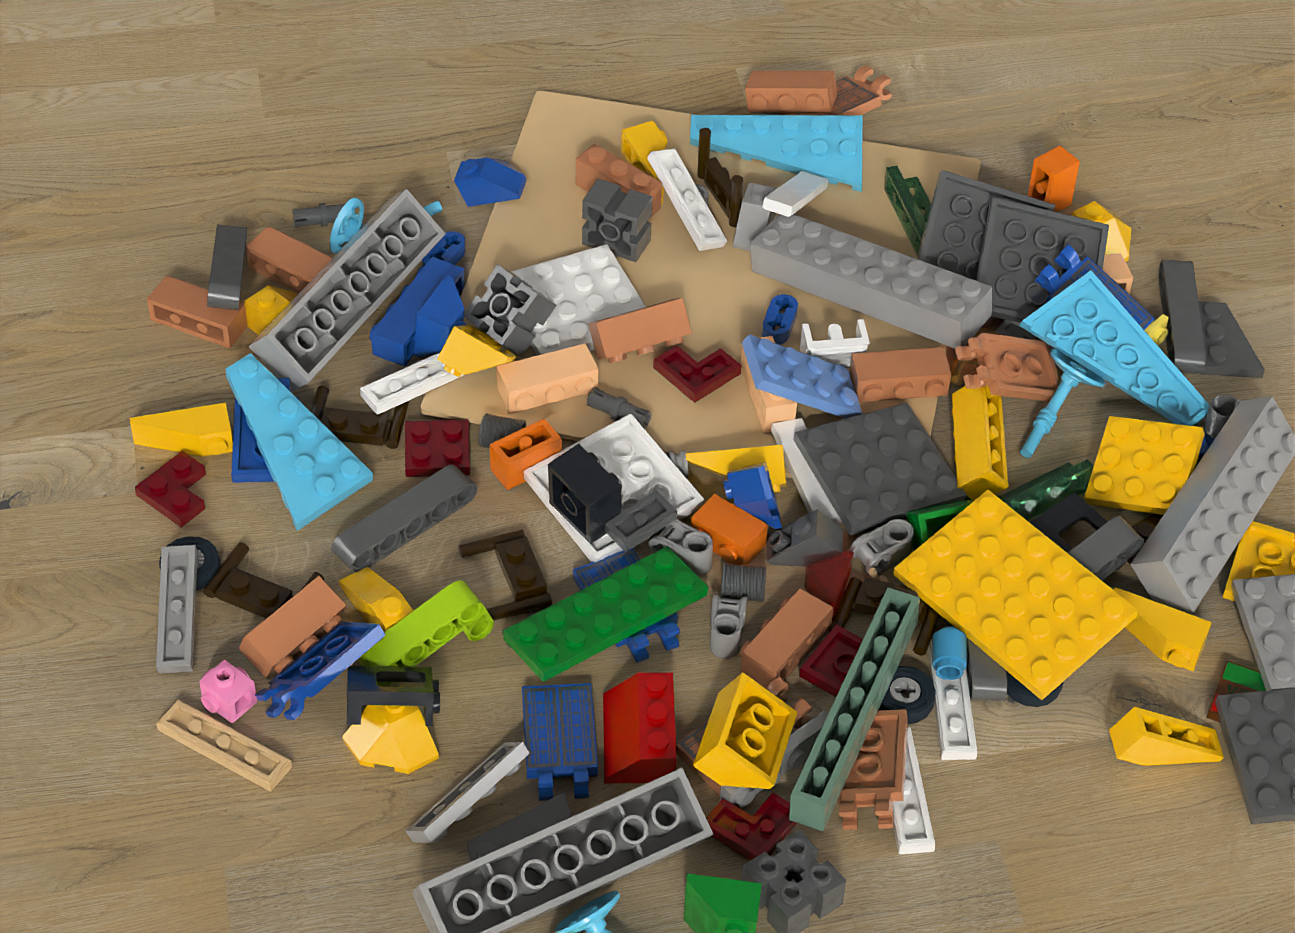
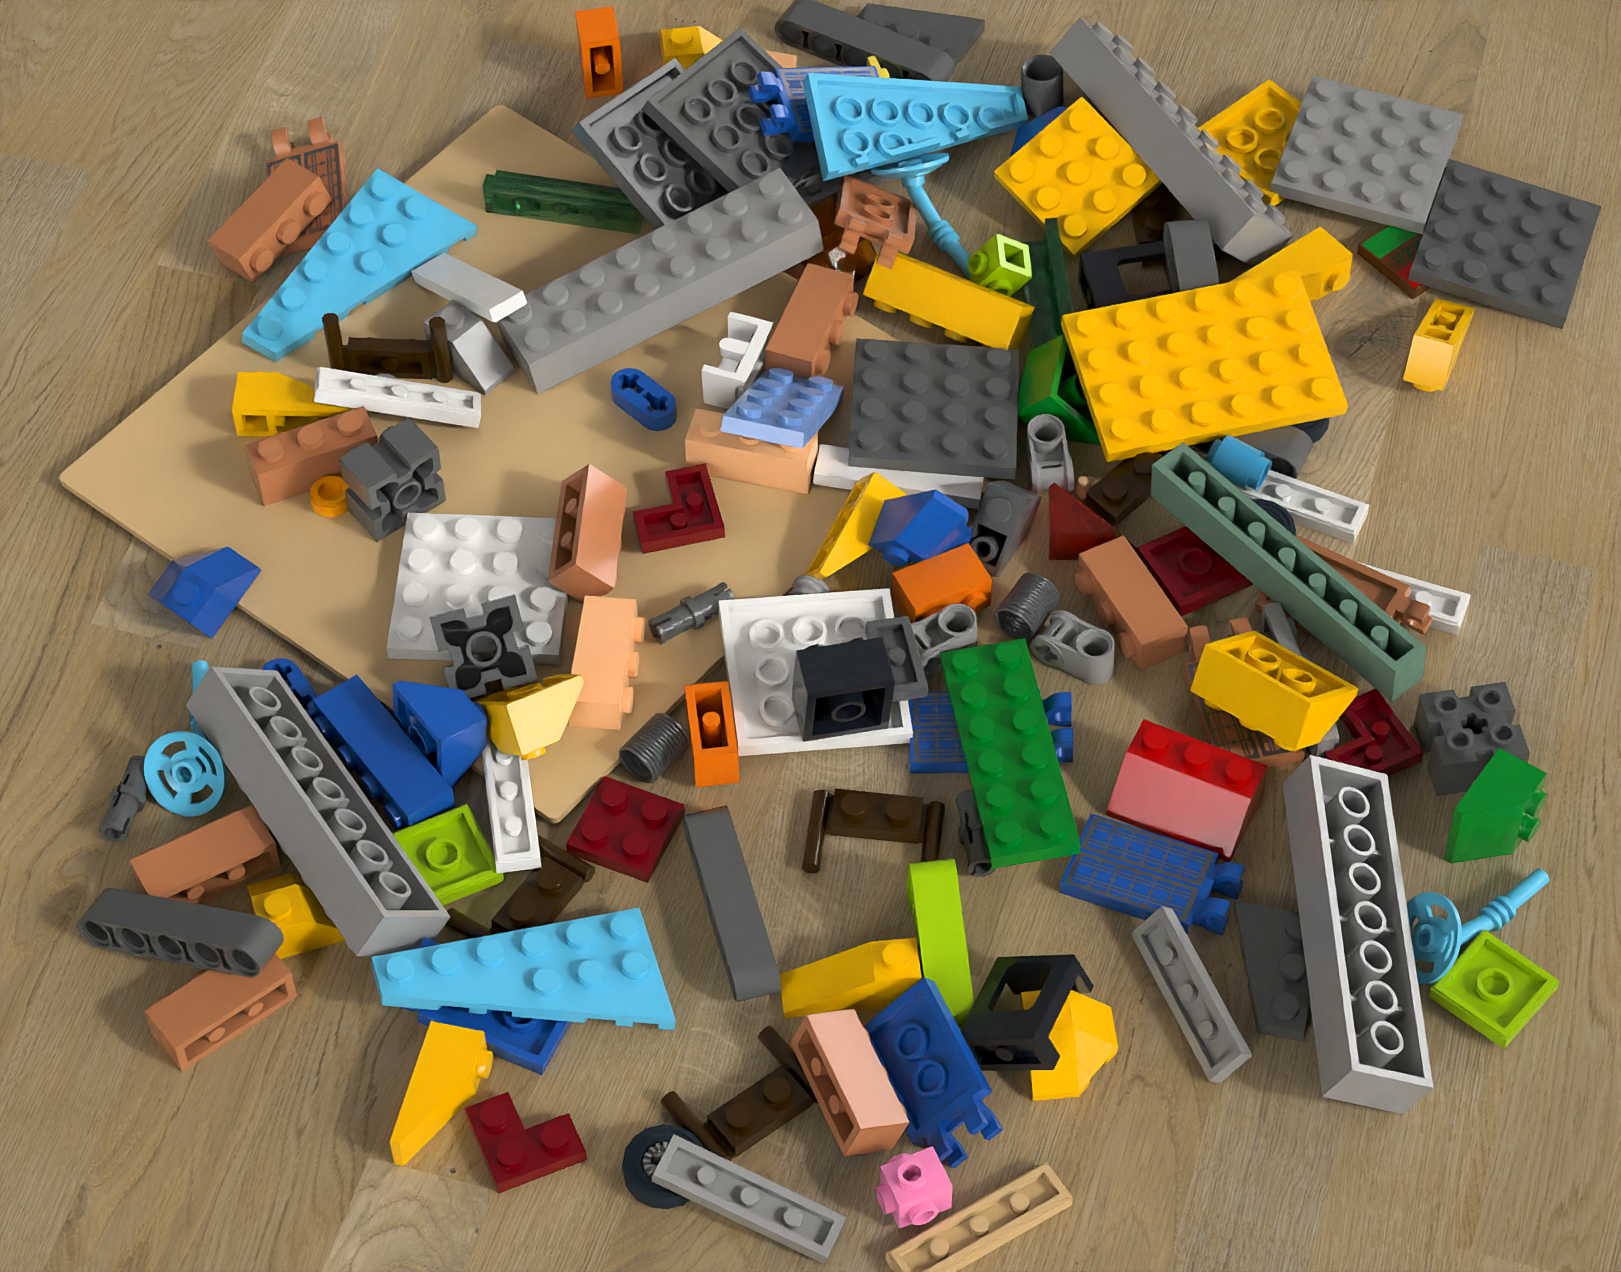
camera: 60 degrees left, 5 degrees up
(358, 365) = (451, 854): none -> lime plate
(1029, 456) = (1001, 265): none -> lime brick

